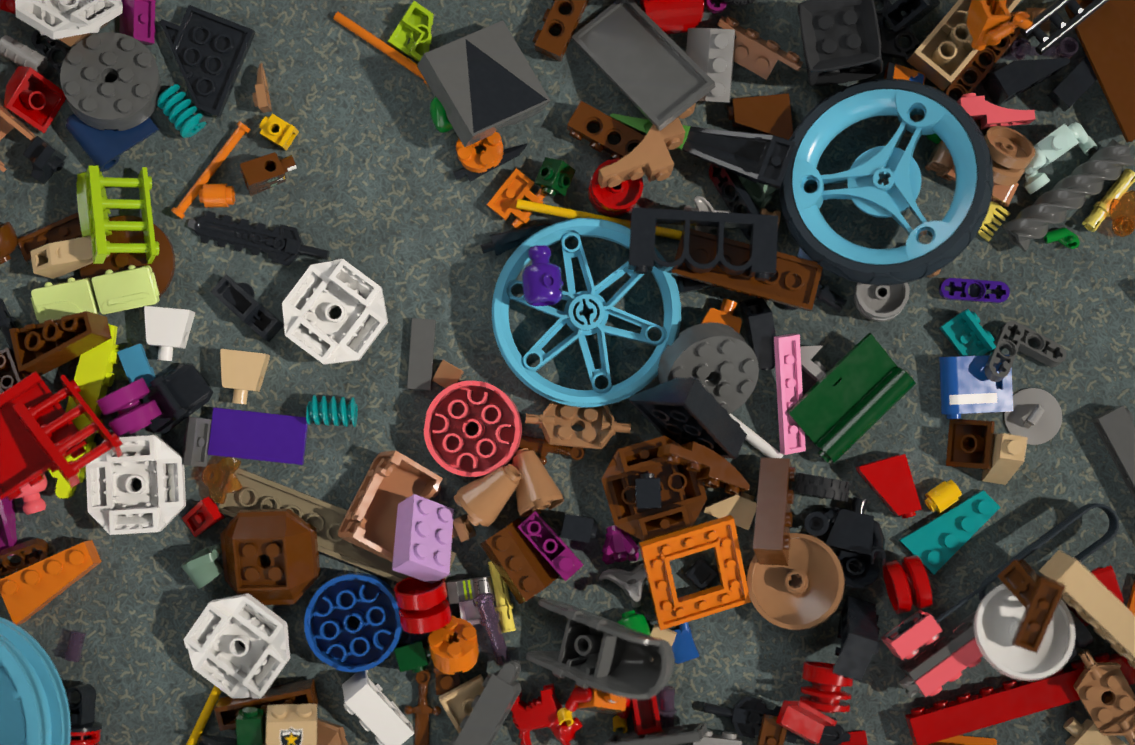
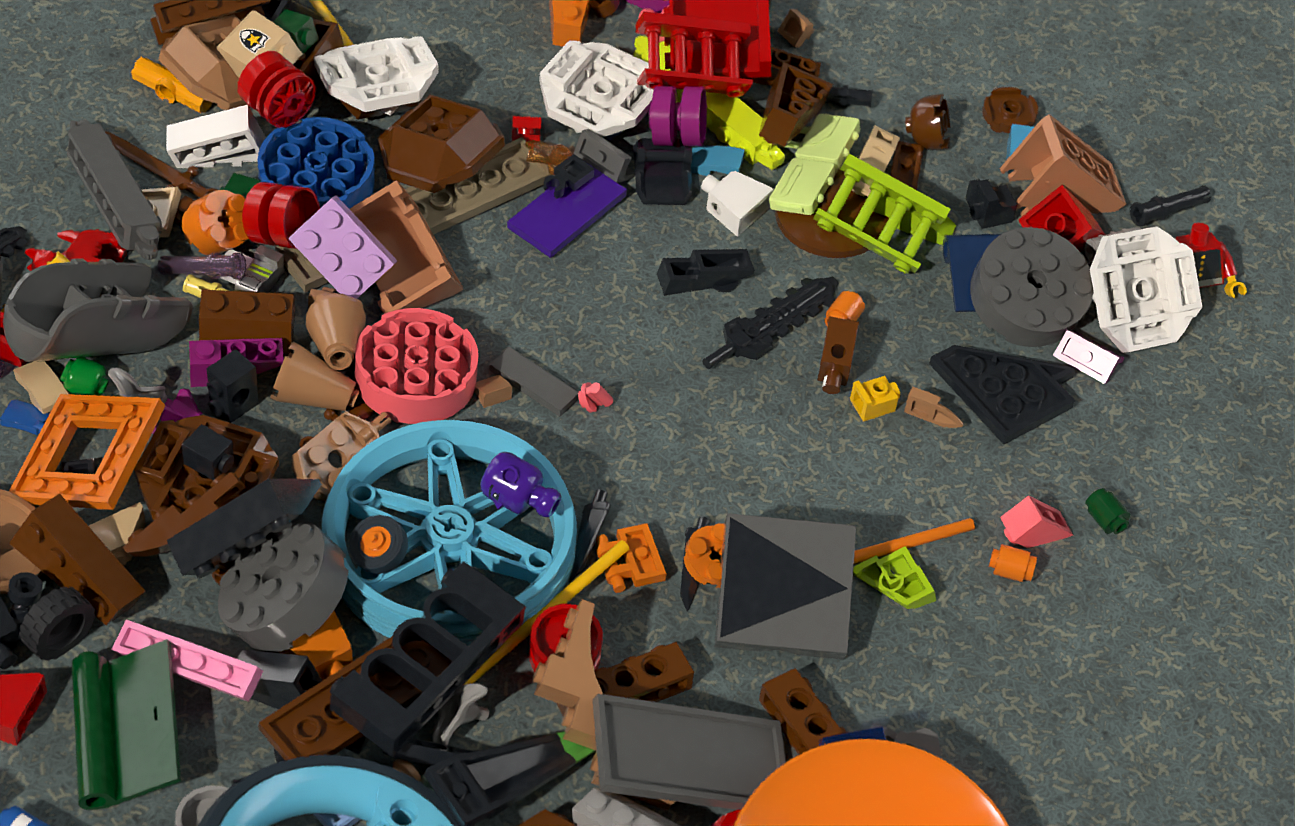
camera: 115 degrees right, 35 degrees down
(179, 113) = (959, 328): teal piece -> none
(203, 566) = (479, 94): sand green piece -> none
(211, 169) = (902, 373): orange bar -> none
(232, 448) = (570, 173): none -> black plate
(242, 372) = (643, 230): tan torso -> none
(309, 309) = (637, 320): white piece -> none
(322, 688) = (276, 89): none -> red wheel
(332, 411) = (539, 272): teal piece -> none
(411, 308) = (593, 396): none -> coral plate
(554, 177) = (626, 600): dark green brick -> none
(639, 336) = (378, 544): none -> black wheel
(758, 442) = (174, 610): white piece -> none
(813, 369) = (214, 708): light grey slope -> none

